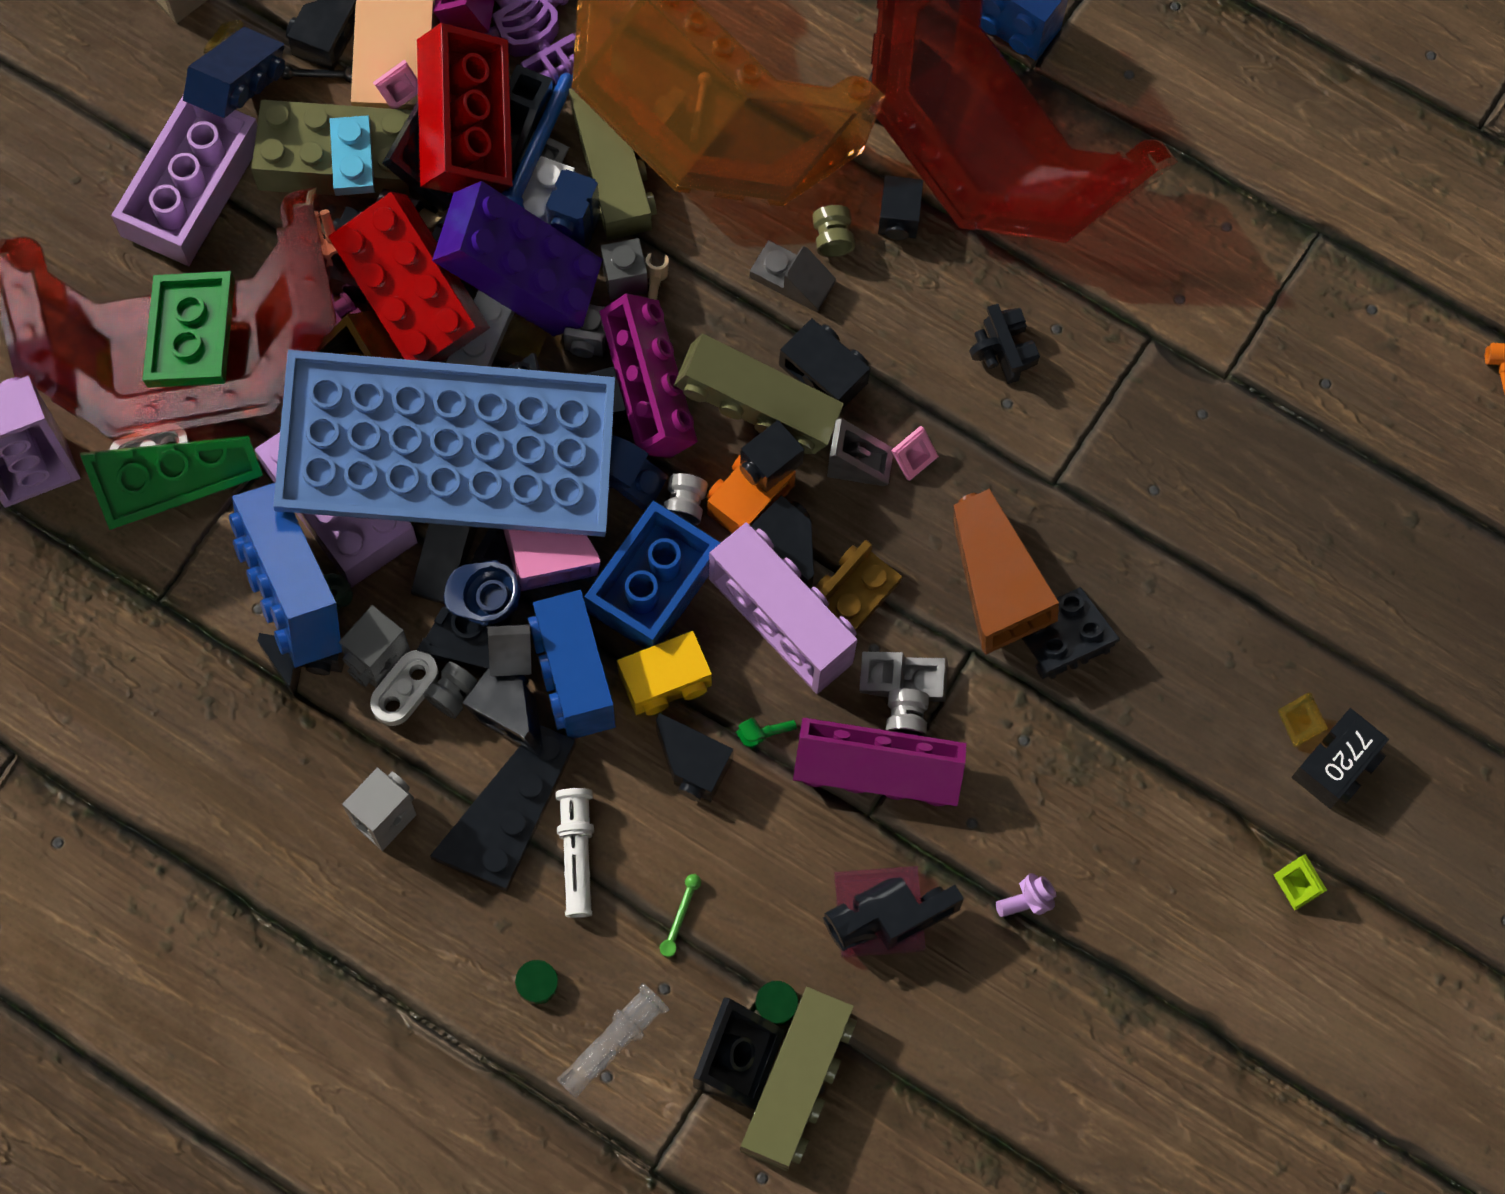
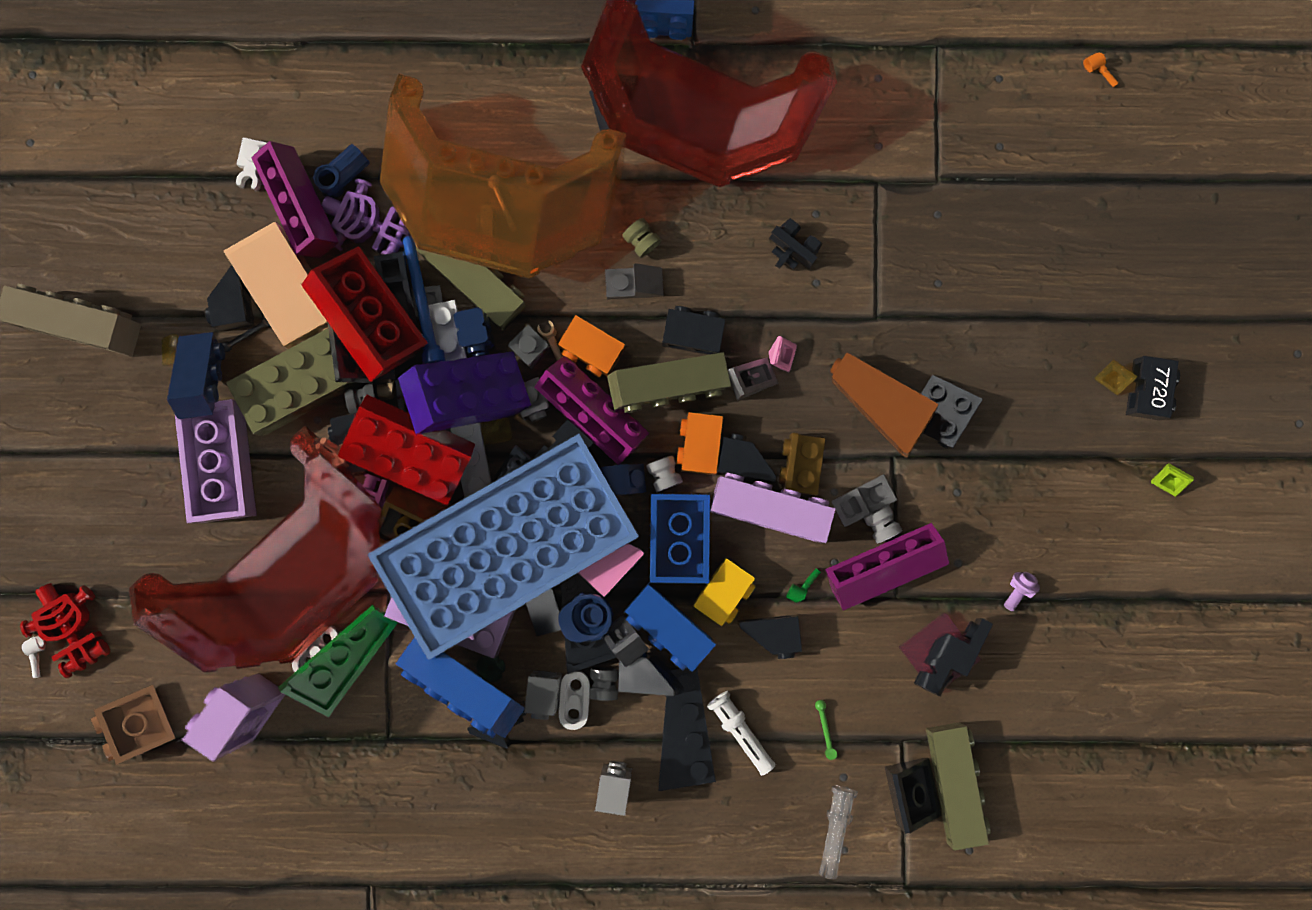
camera: 30 degrees left, 15 degrees up
(189, 329) = (289, 566): green plate -> none
(352, 155) = (311, 386): medium azure plate -> none
(398, 85) = (307, 319): bright pink slope -> none
(536, 982) = (769, 823): dark green tile -> none
(694, 307) = (591, 346): none -> orange brick
(771, 456) = (705, 420): black brick -> none
(776, 1002) = (914, 746): dark green tile -> none
(900, 207) = (673, 196): black brick -> none

